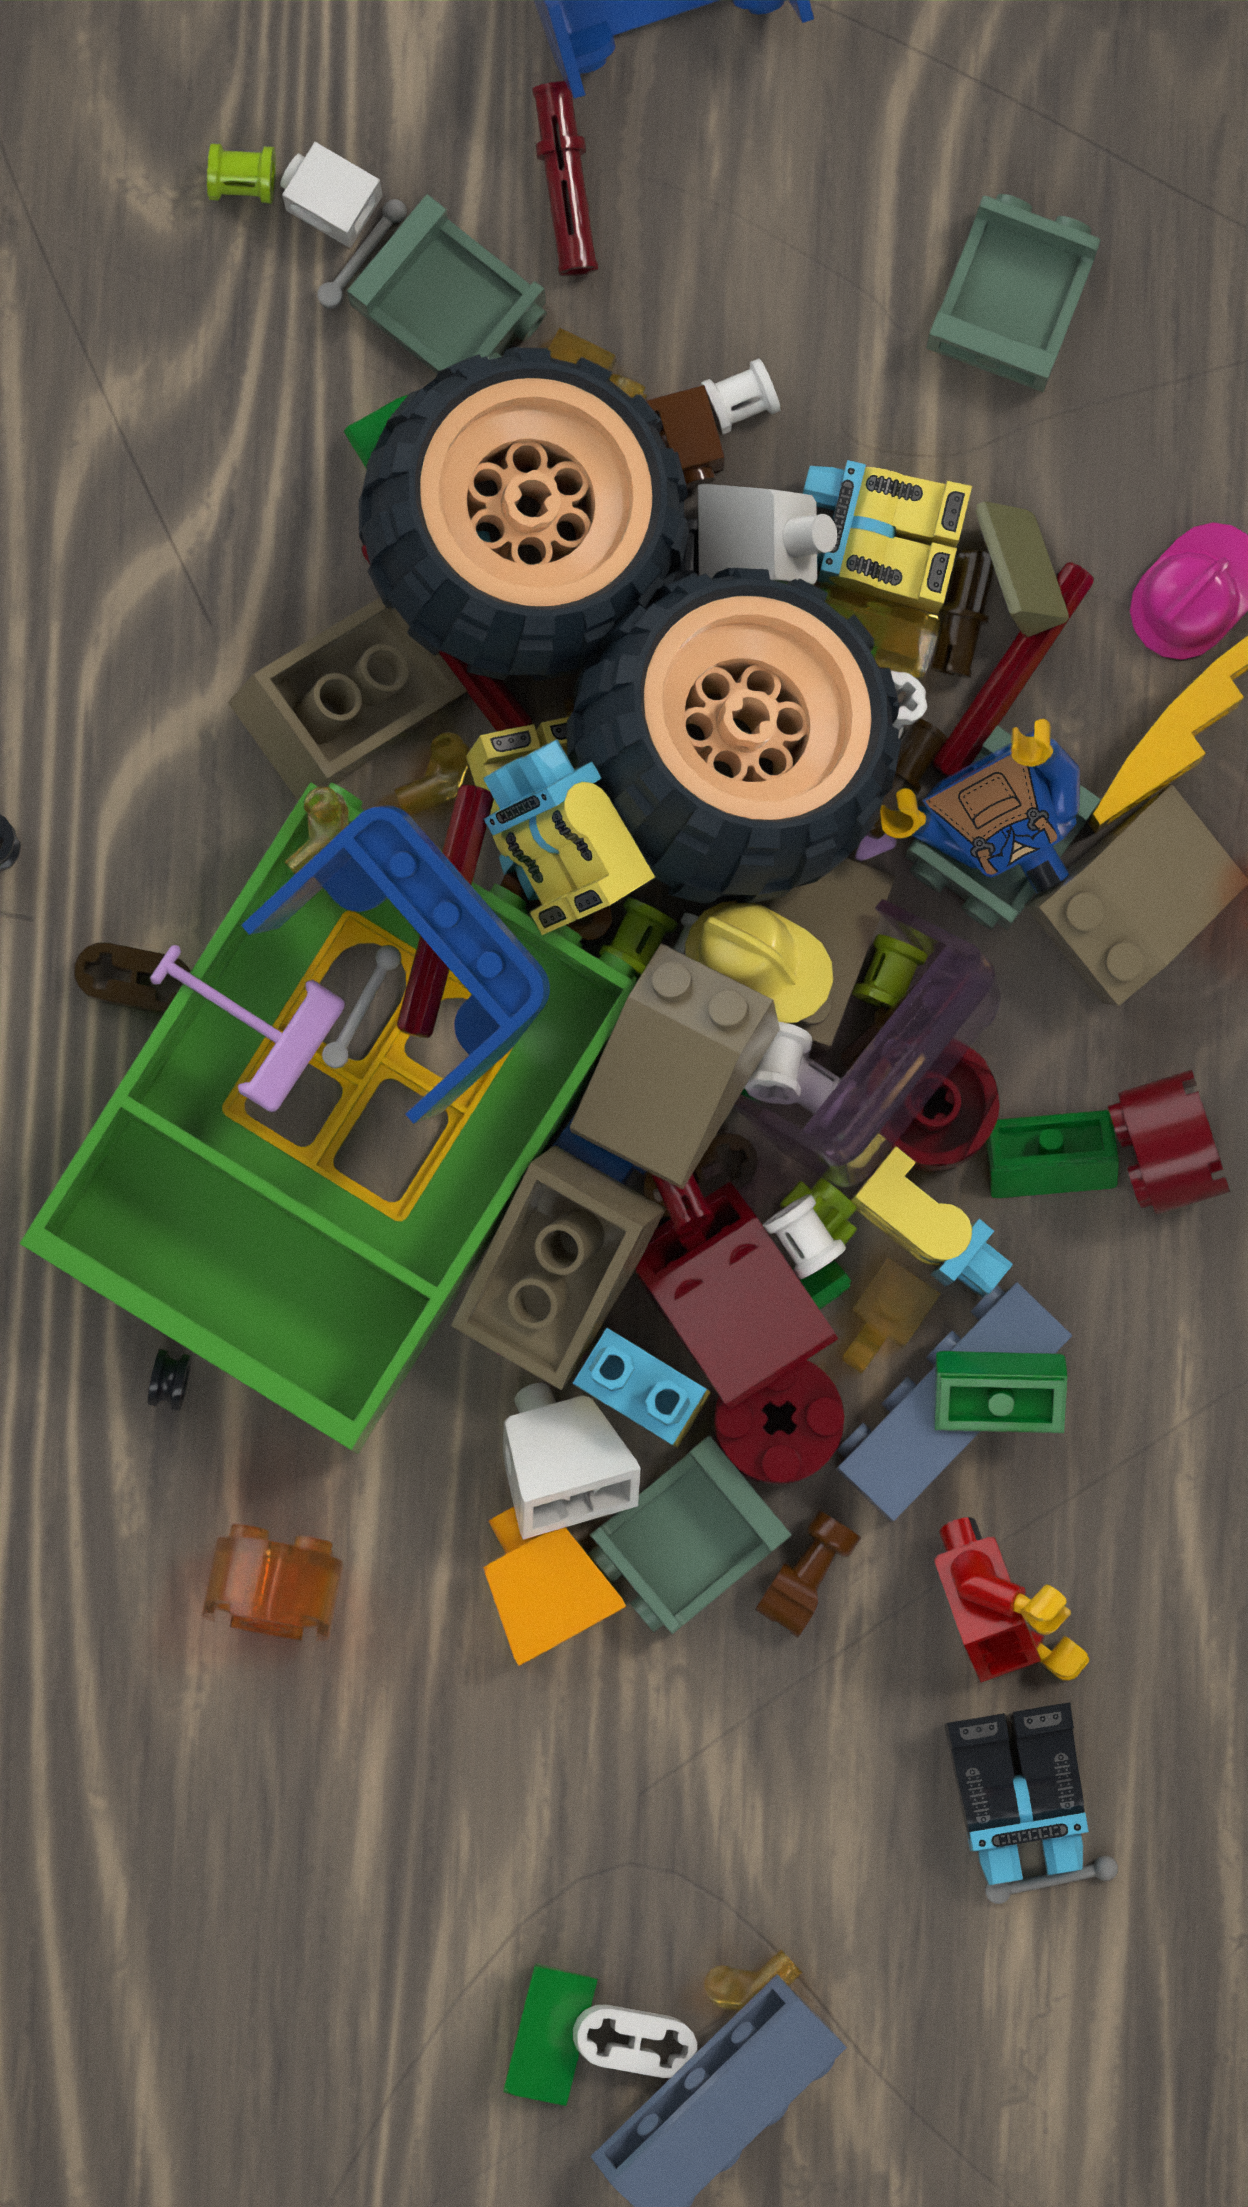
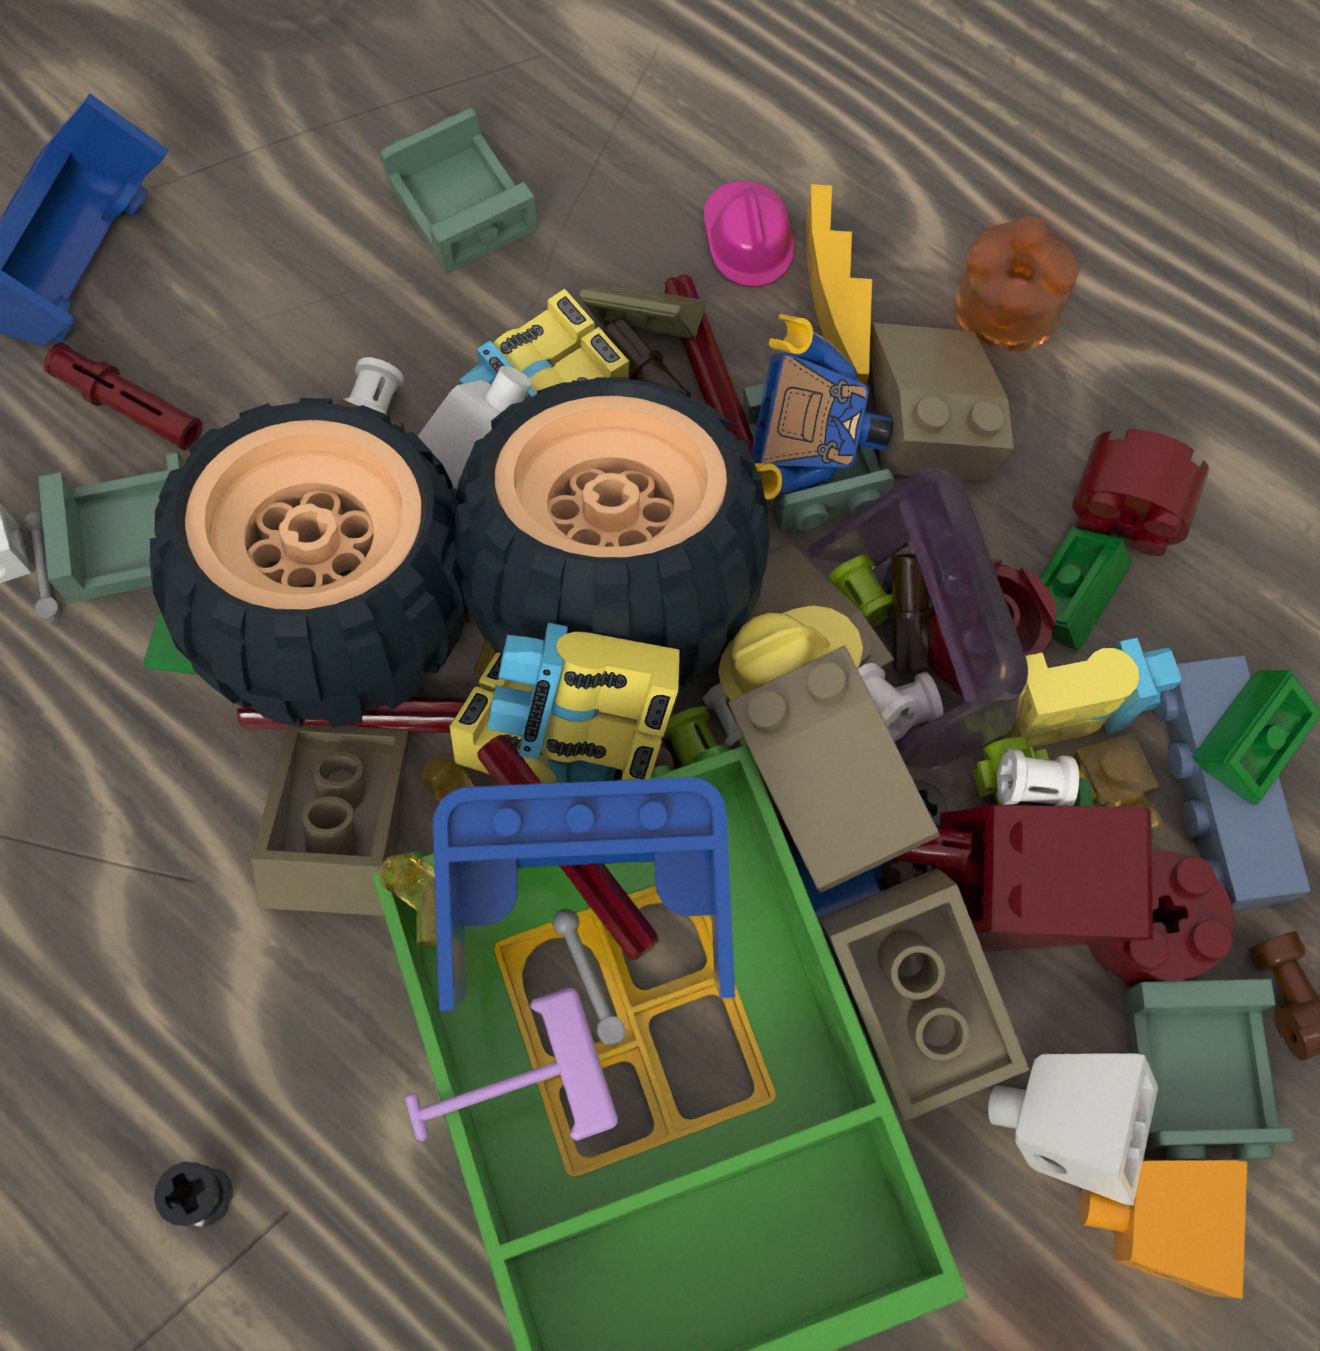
camera: 55 degrees left, 15 degrees down
(118, 992) = (411, 1180): dark brown beam -> none
(642, 1388) = (1074, 1001): medium azure hips -> none

